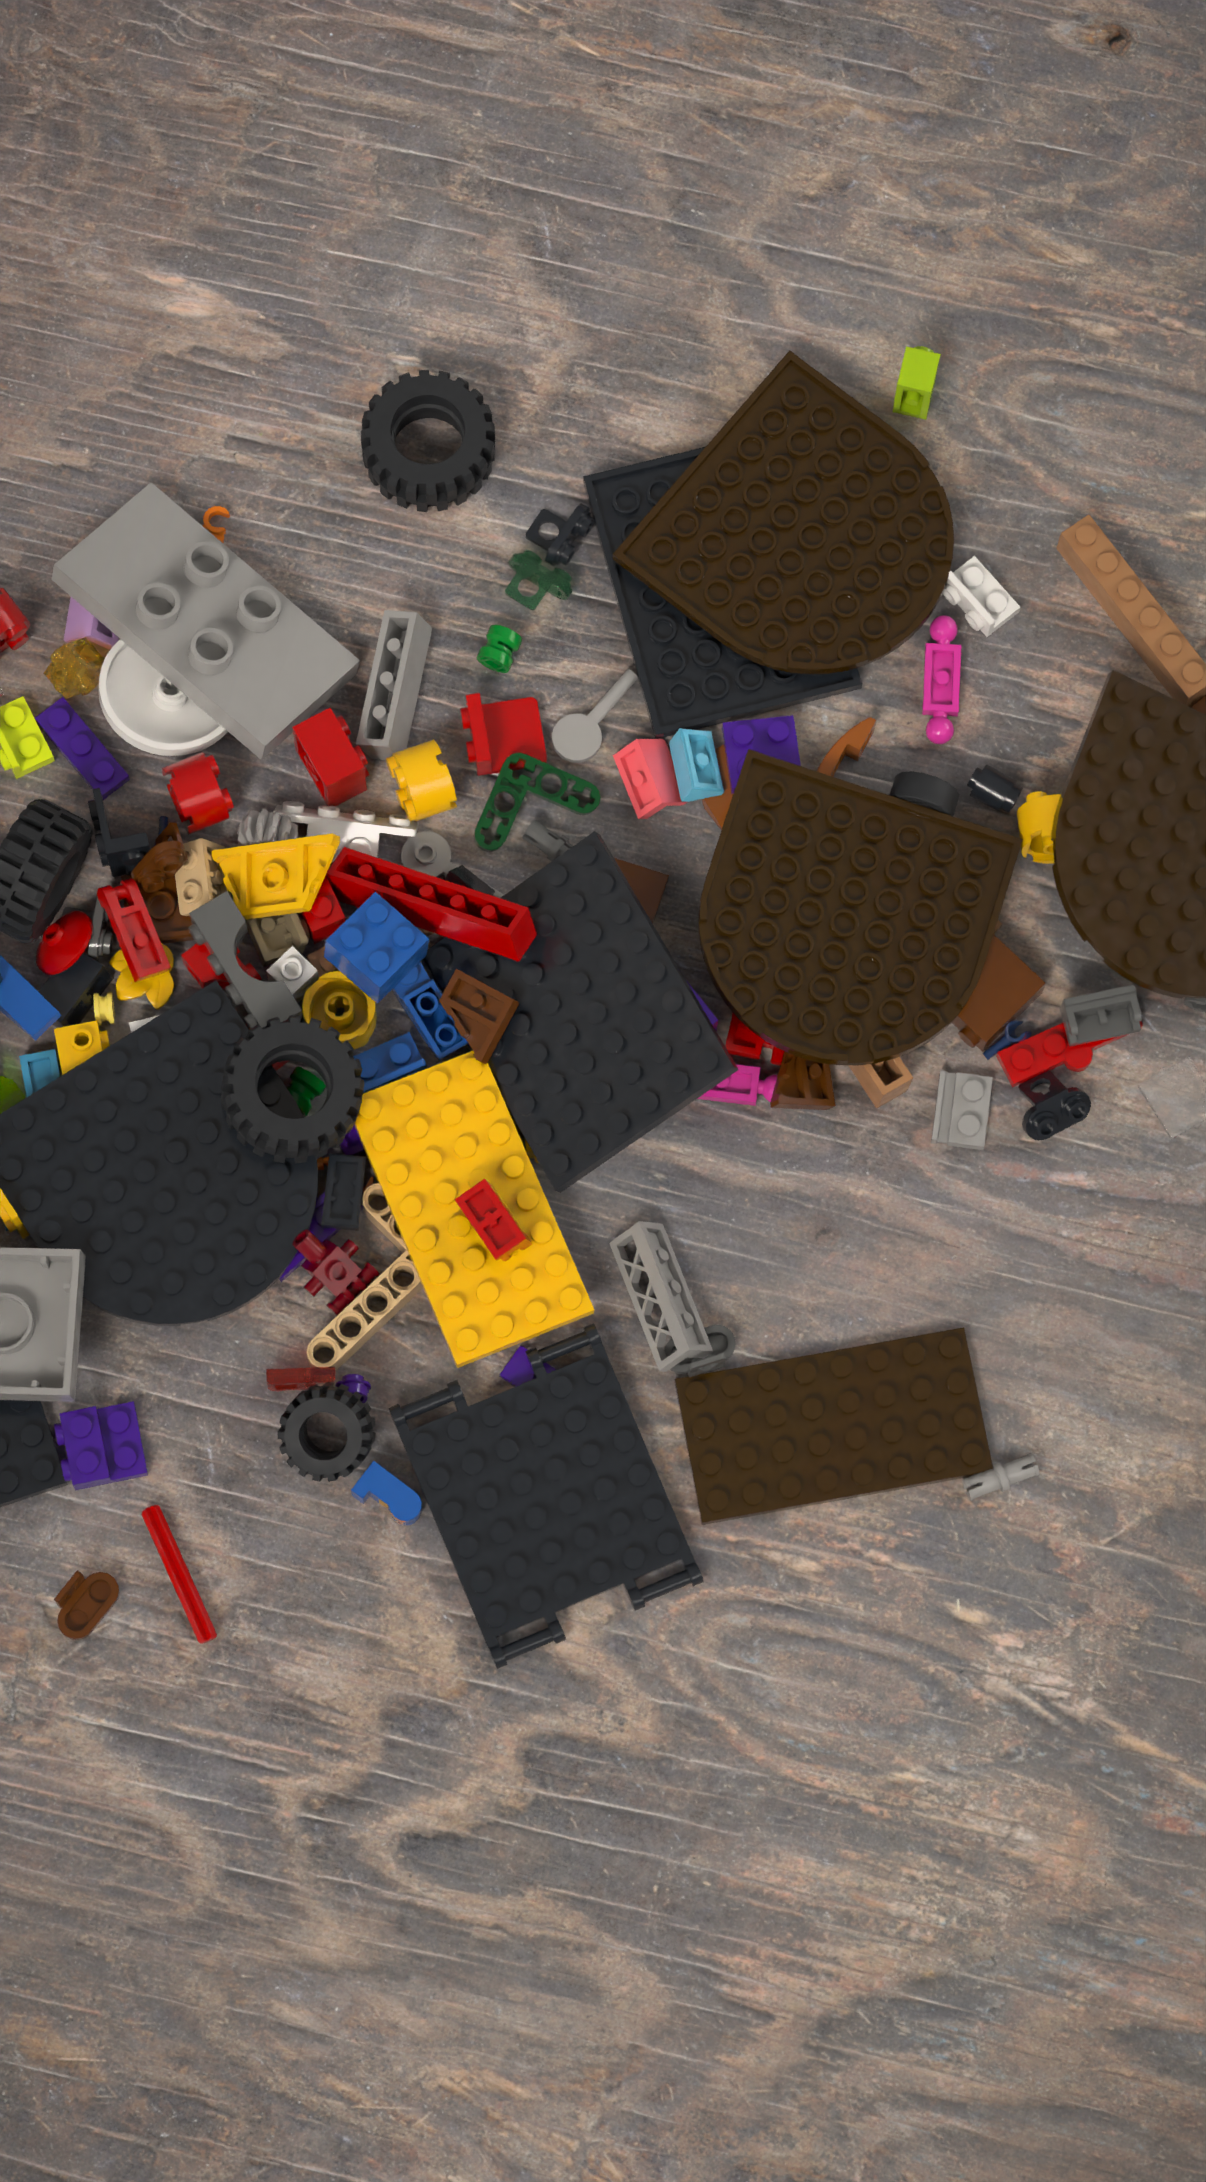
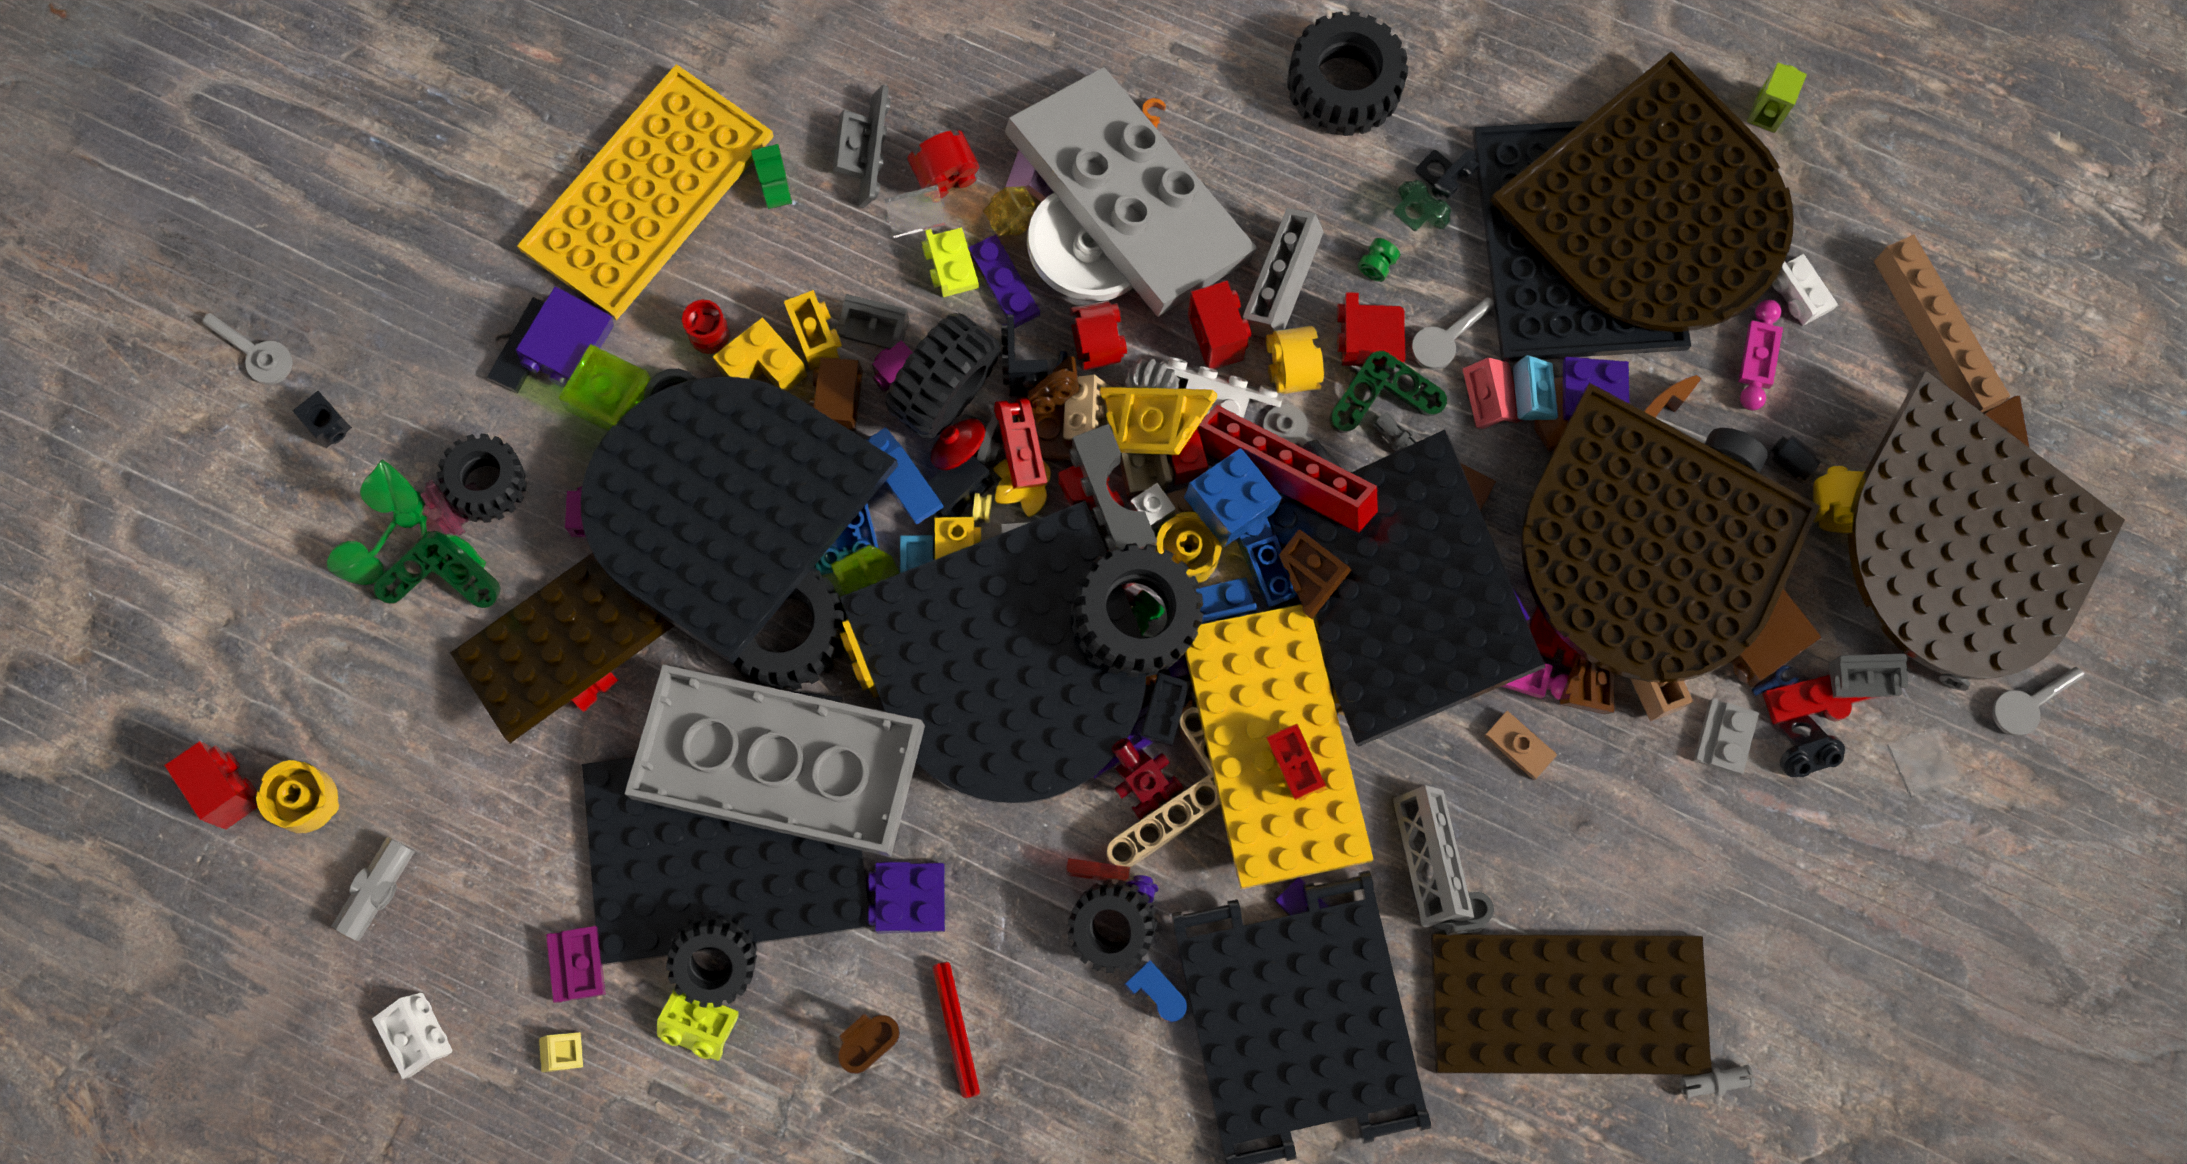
camera: 10 degrees right, 0 degrees up
(739, 1160) = (1520, 745): none -> medium nougat plate

